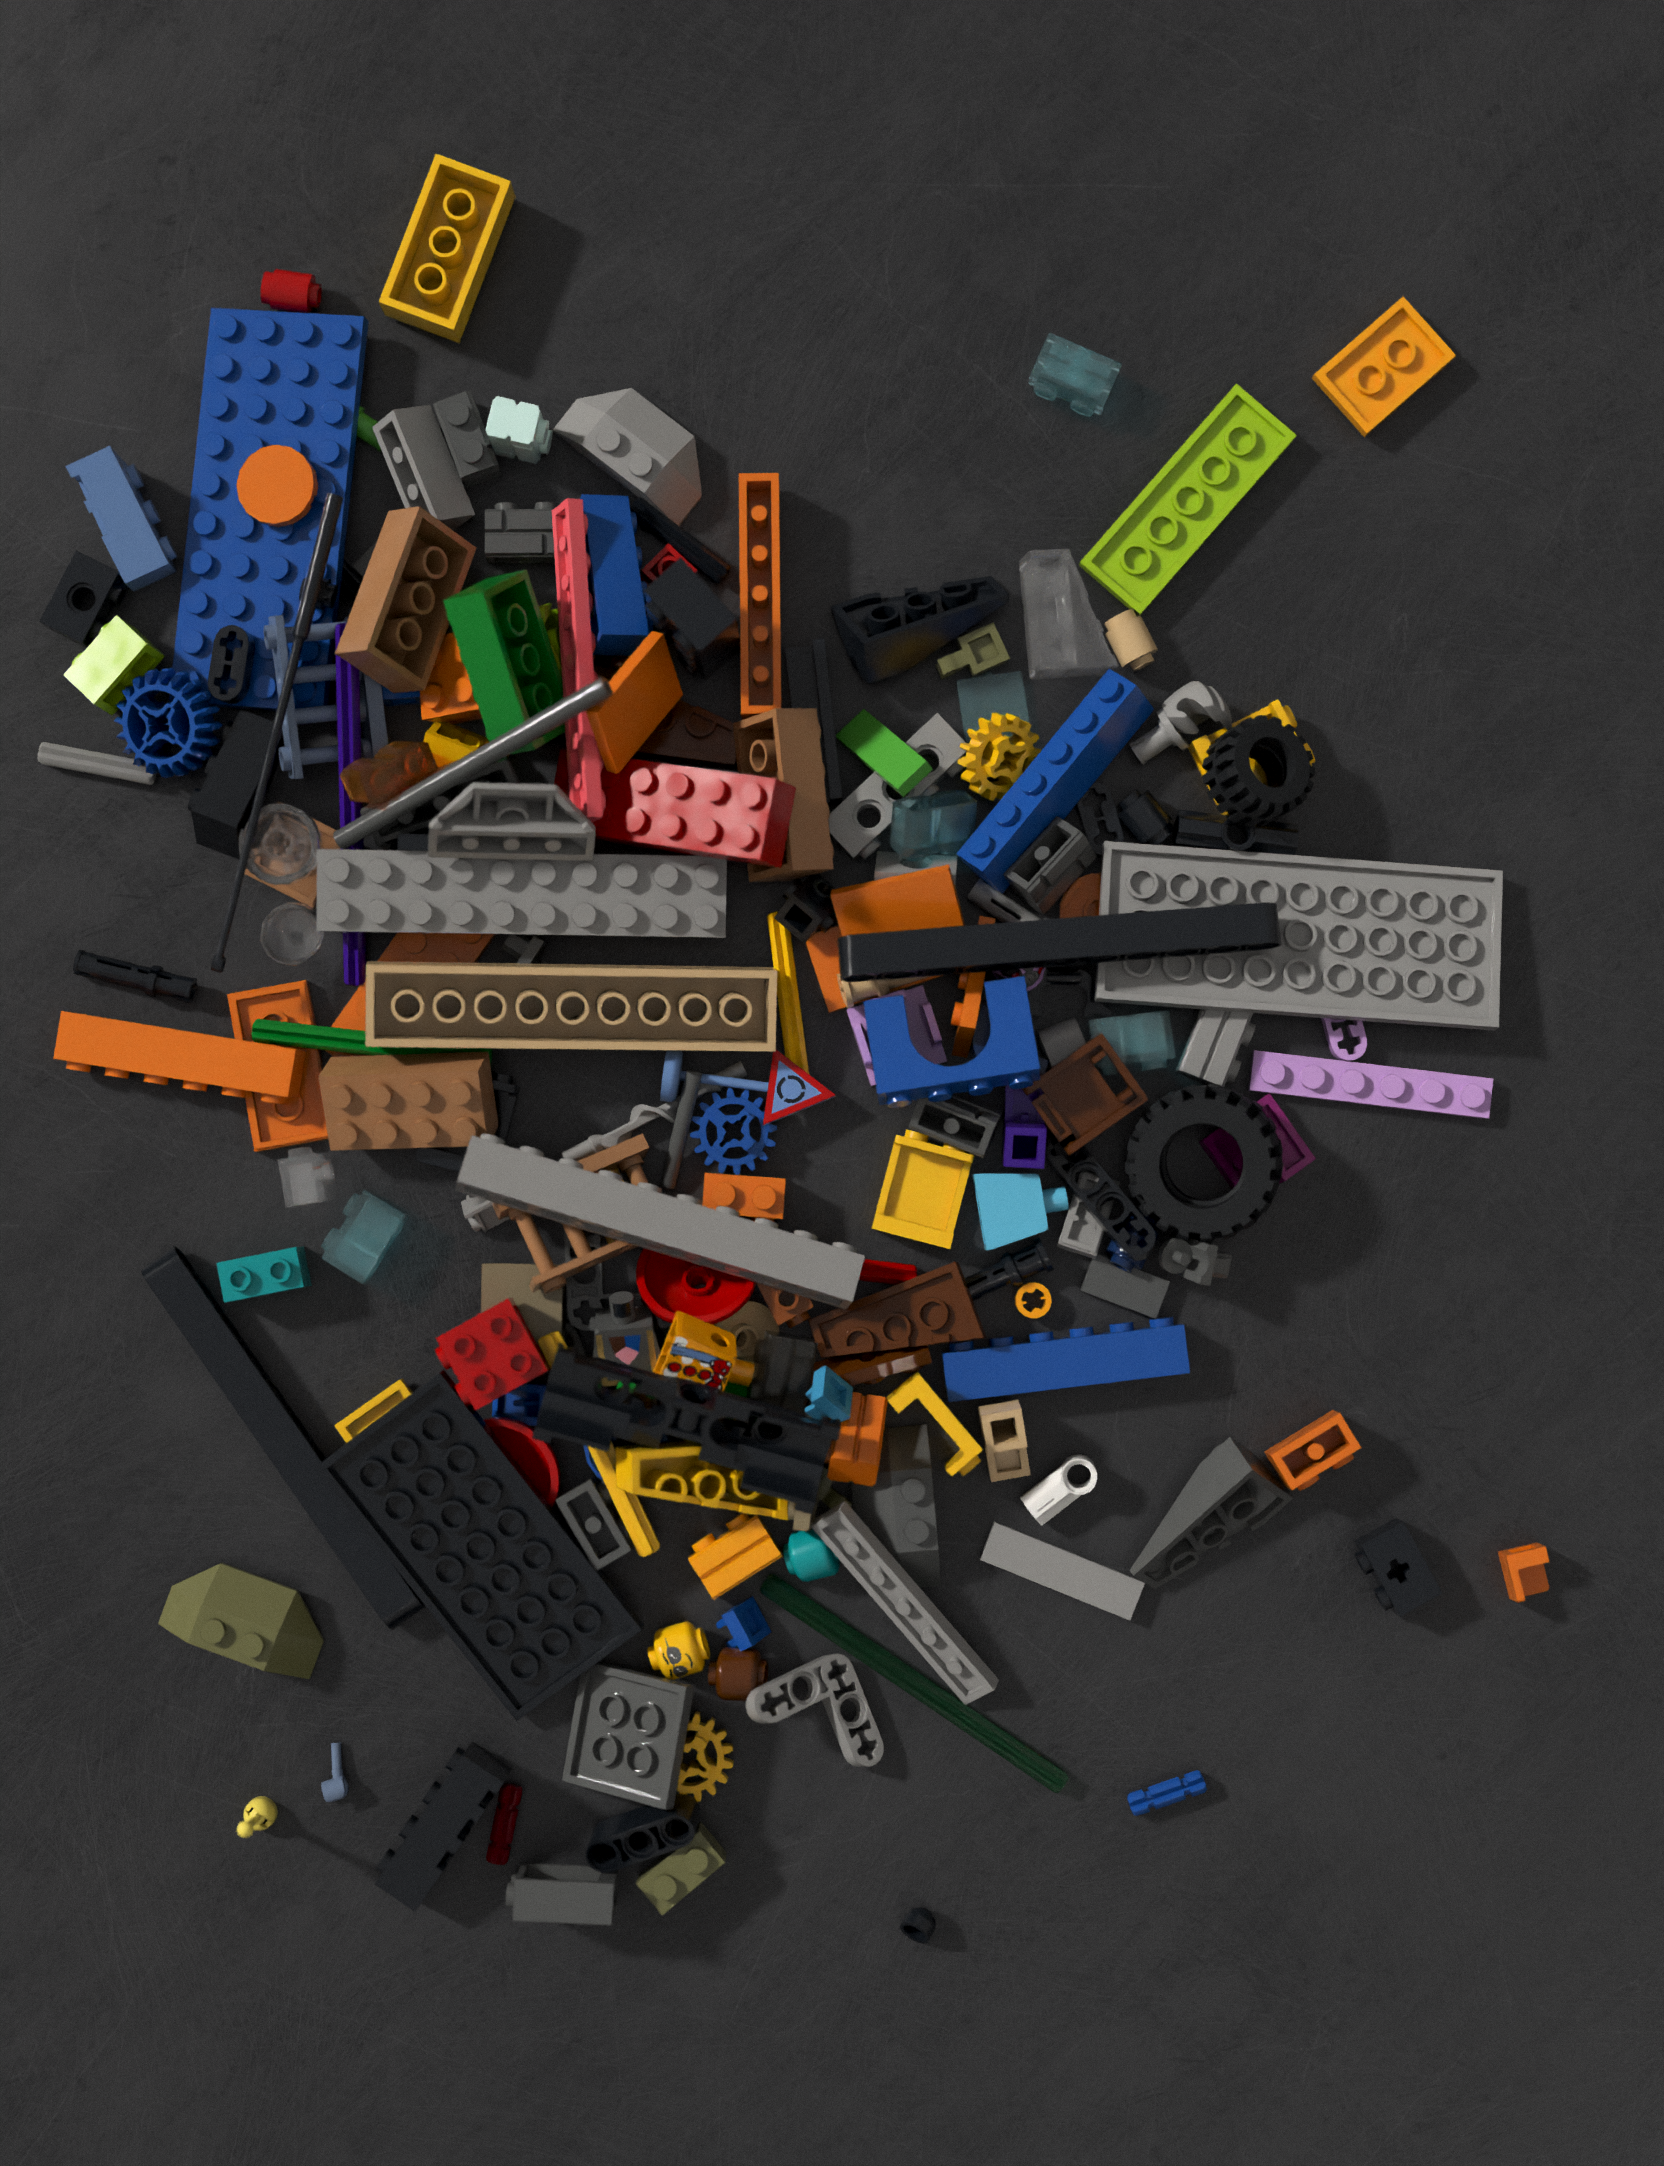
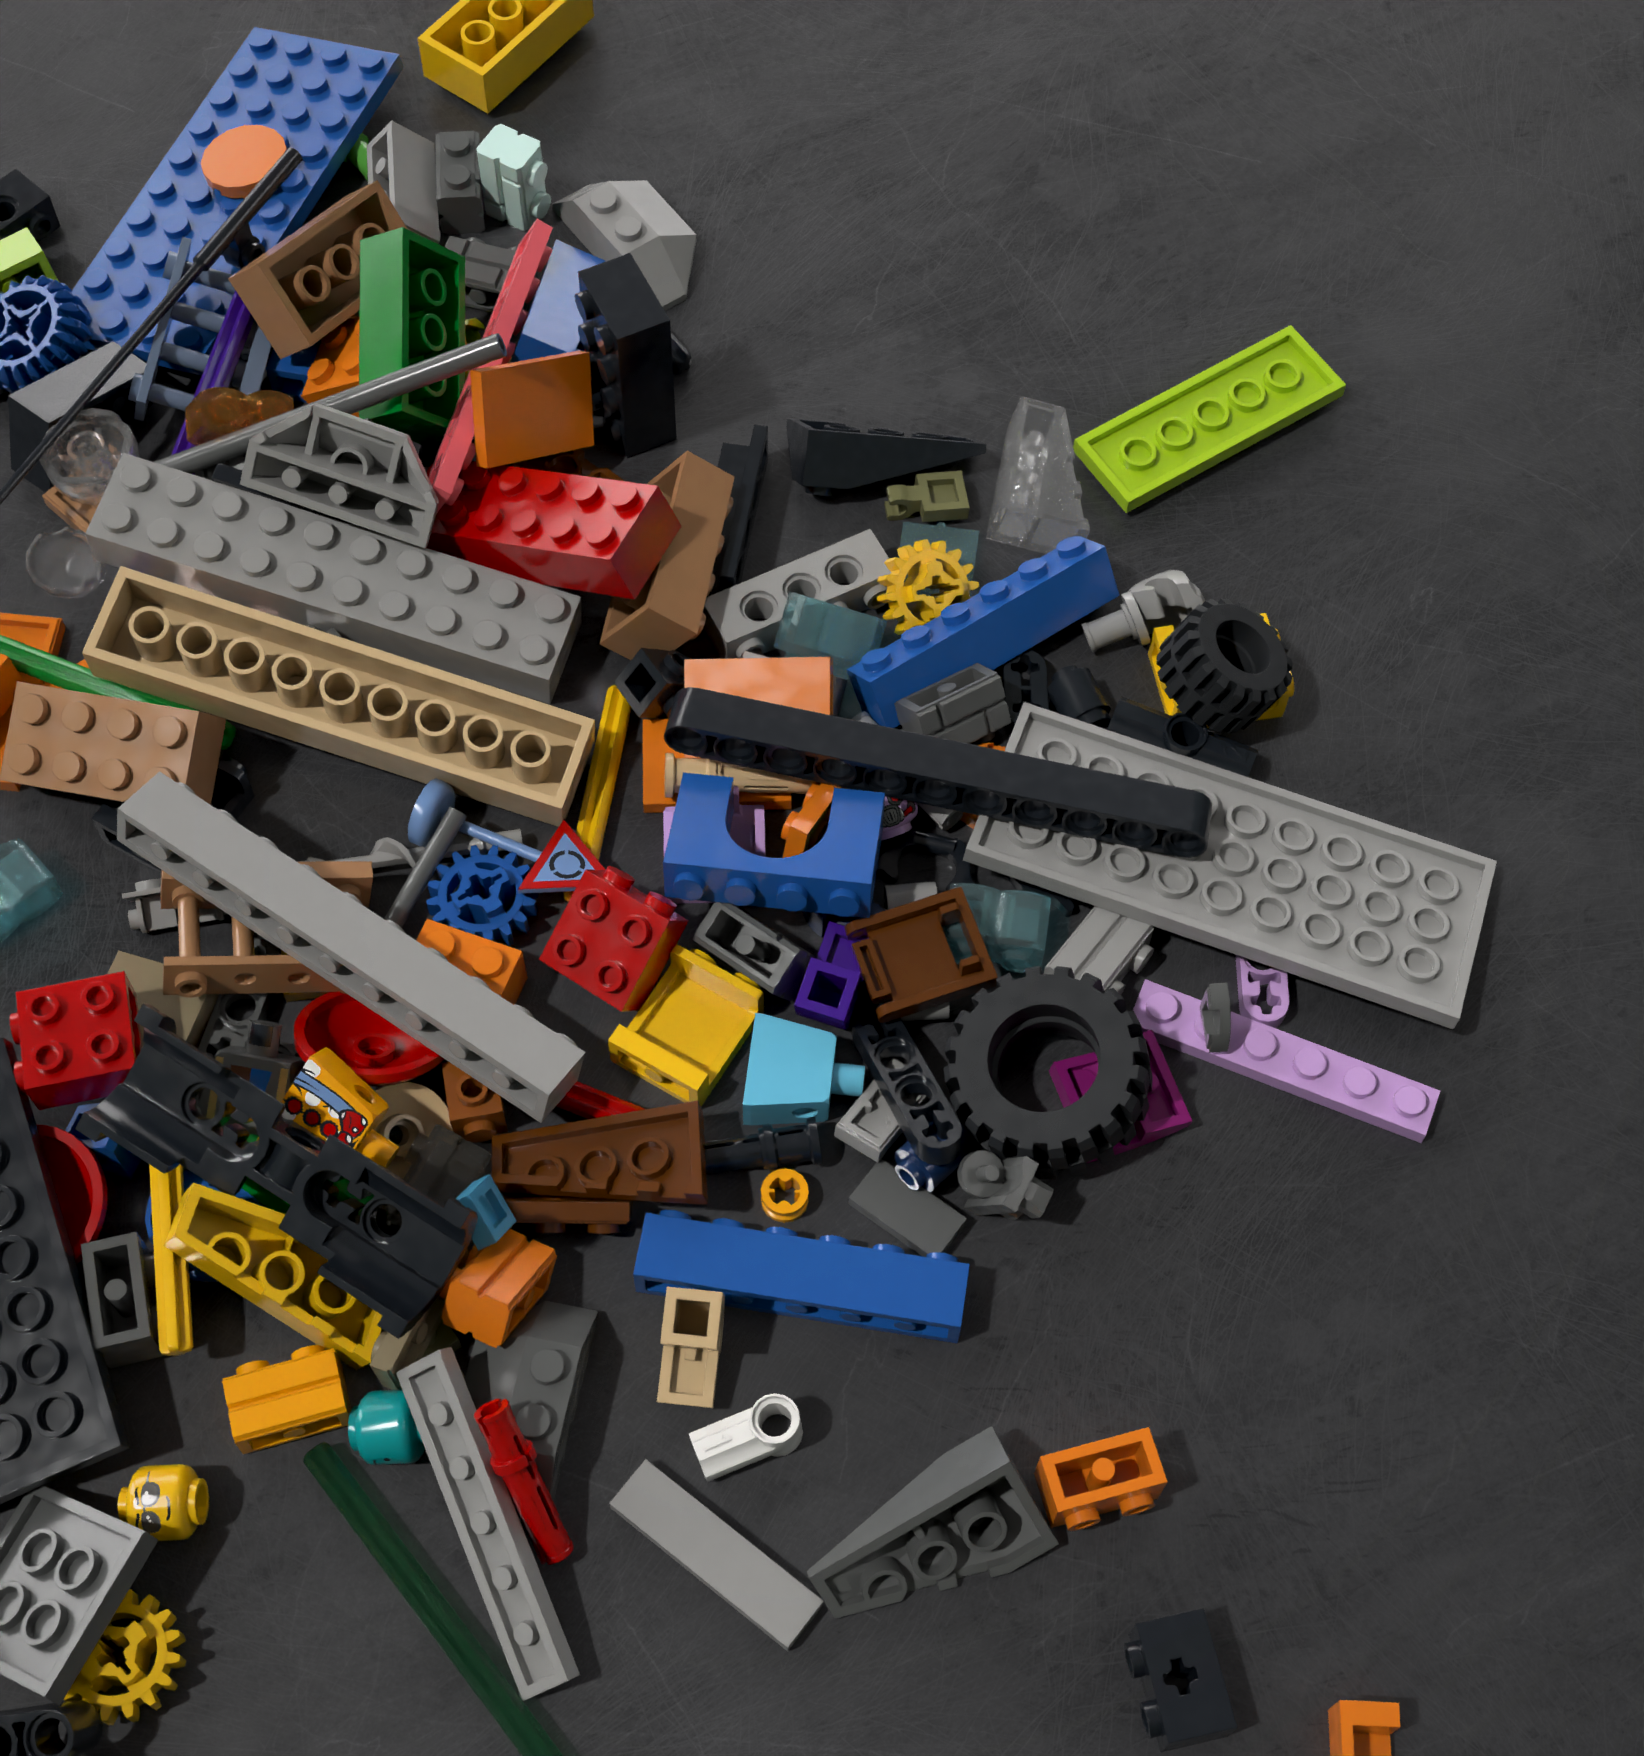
camera: 15 degrees right, 25 degrees down
(124, 518) = (79, 156): medium blue wedge -> none
(222, 663) = (122, 298): black beam -> none
(290, 291) = (337, 26): red brick -> none
(737, 1673) = (230, 1559): reddish brown head -> none
(745, 1624) = (265, 1495): blue tile -> none
(760, 593) = (717, 365): orange brick -> none
(823, 1689) = (330, 1612): light grey beam -> none
(849, 1145) = (614, 938): none -> red brick
(884, 752) = (798, 548): bright green tile -> none
(915, 1565) = (515, 1461): none -> red pin
(917, 1387) = (591, 1247): yellow panel -> none
(1074, 375) = (1117, 279): clear light blue brick -> none
(1130, 640) = (1111, 524): tan brick -> none
(1317, 1078) = (1216, 1017): none -> dark grey tile
(1383, 366) = (1456, 352): light orange plate -> none

